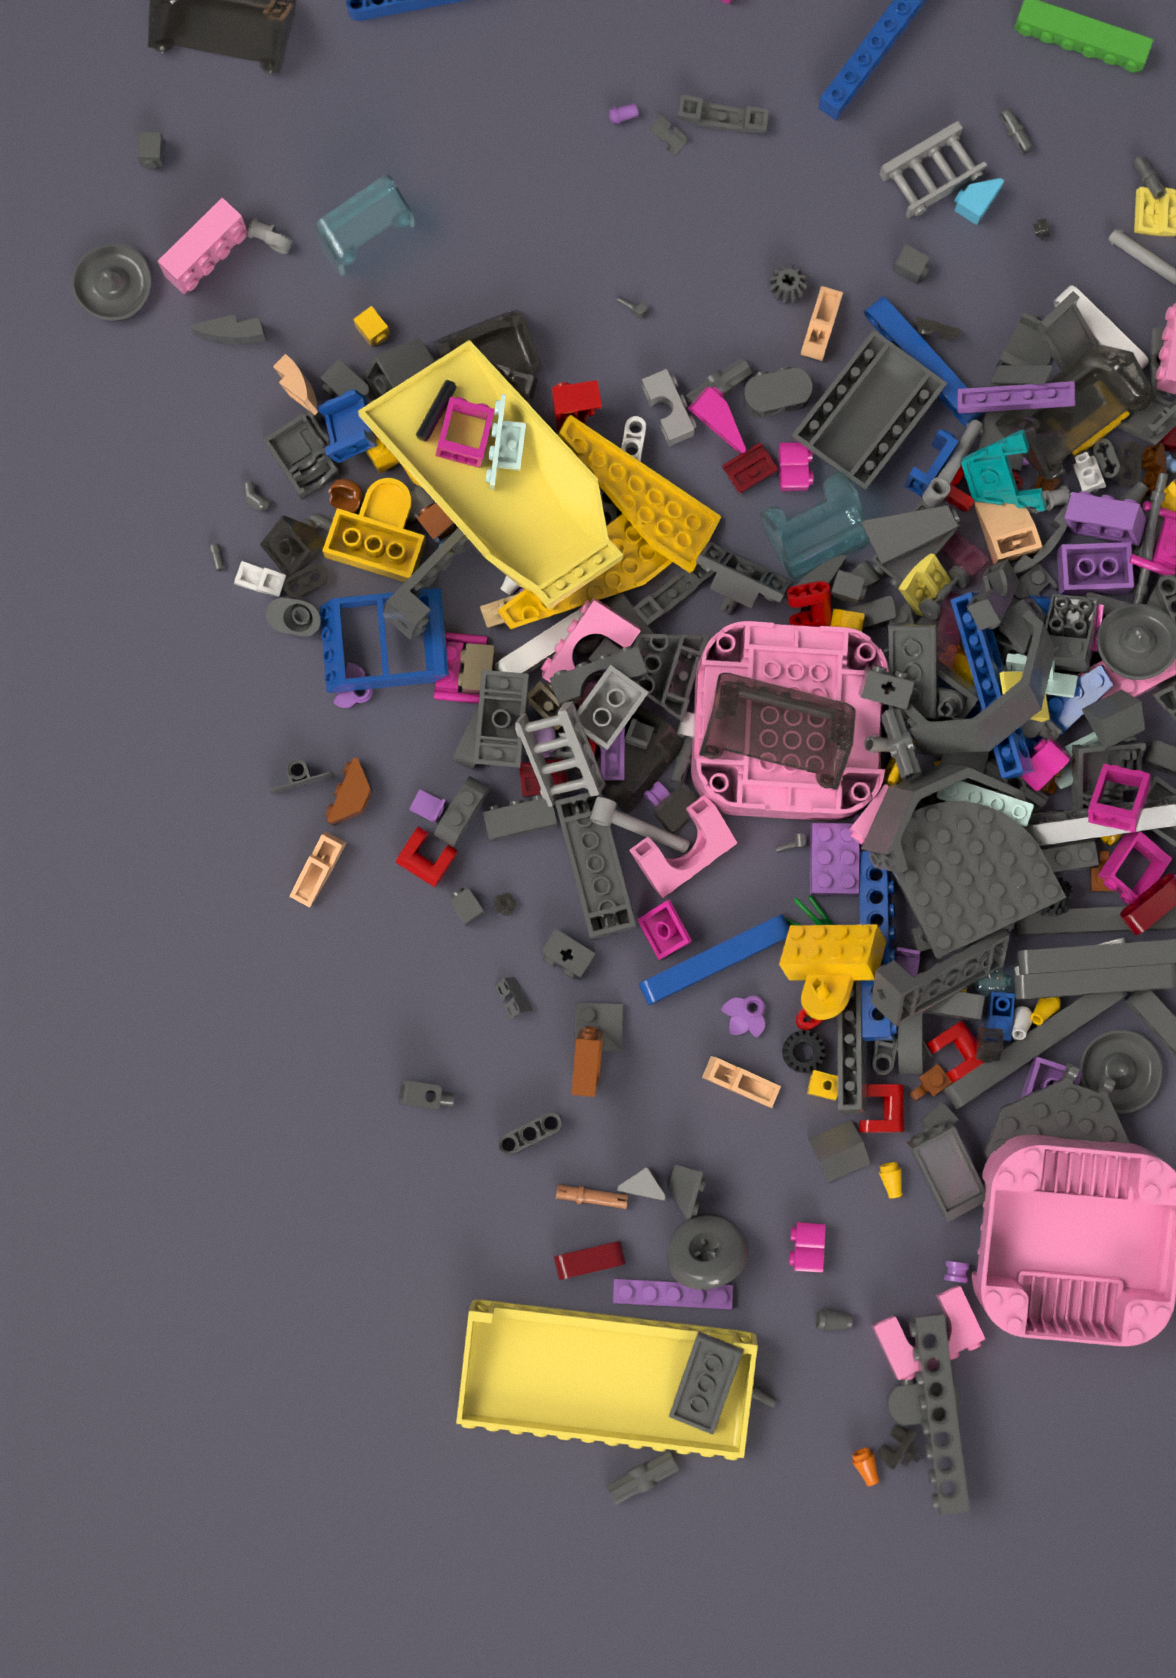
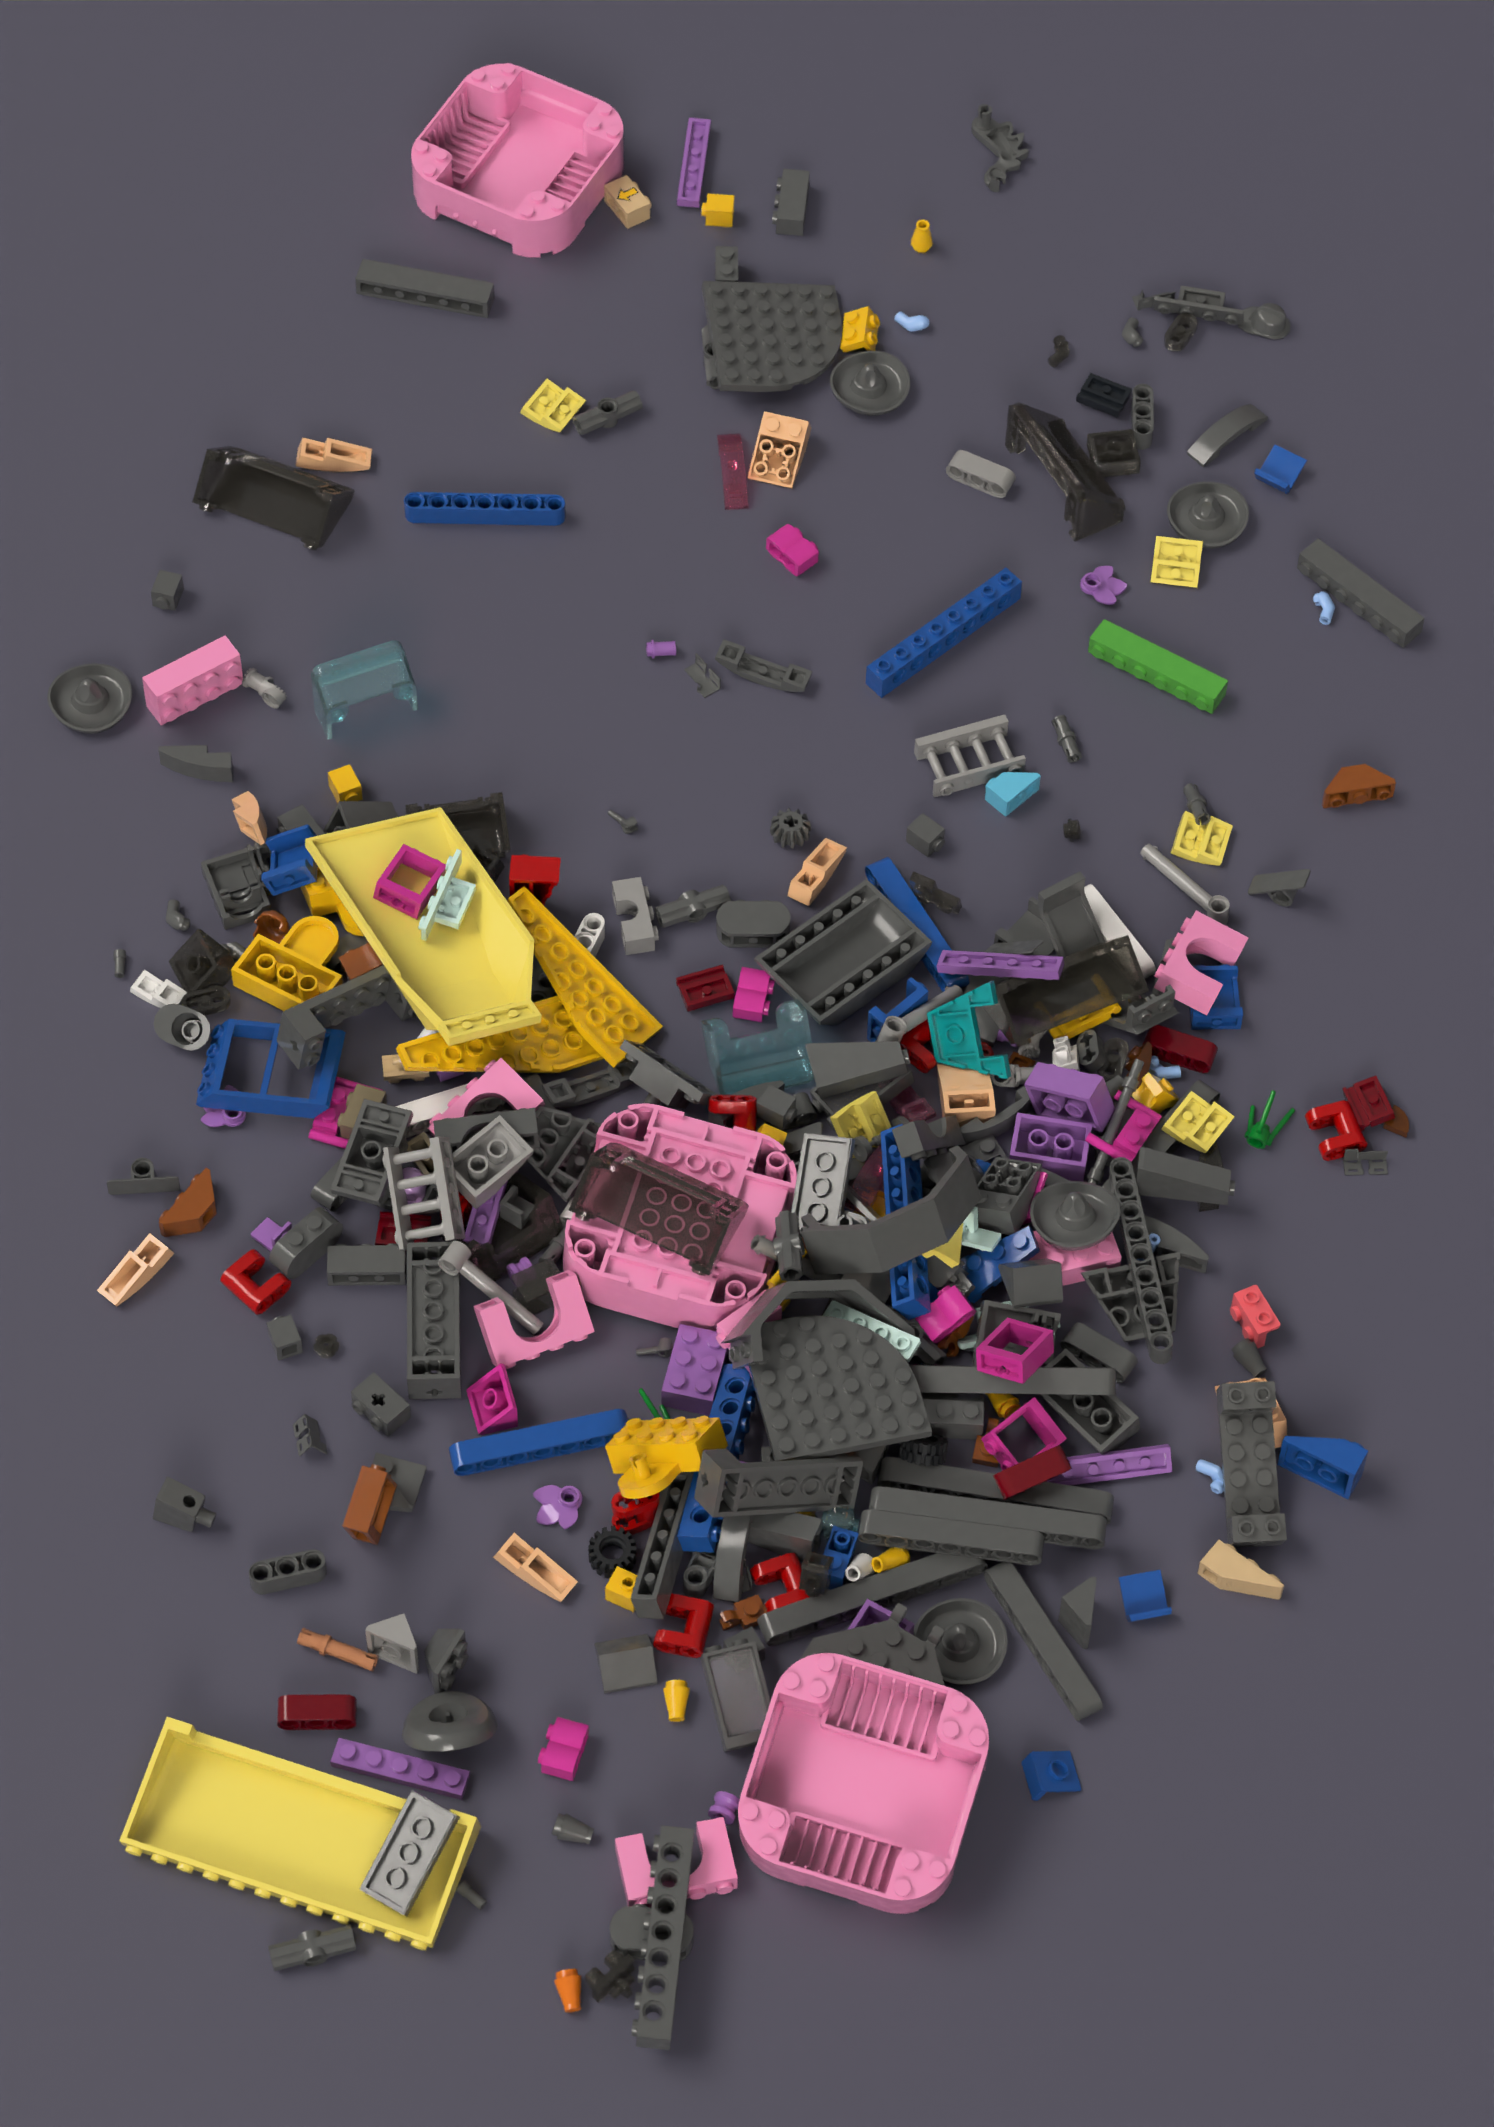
camera: 10 degrees right, 25 degrees down
(436, 410) = (384, 858): black axle -> none
(715, 413) = (679, 924): dark pink slope -> none
(896, 696) = (772, 1190): dark grey brick -> none

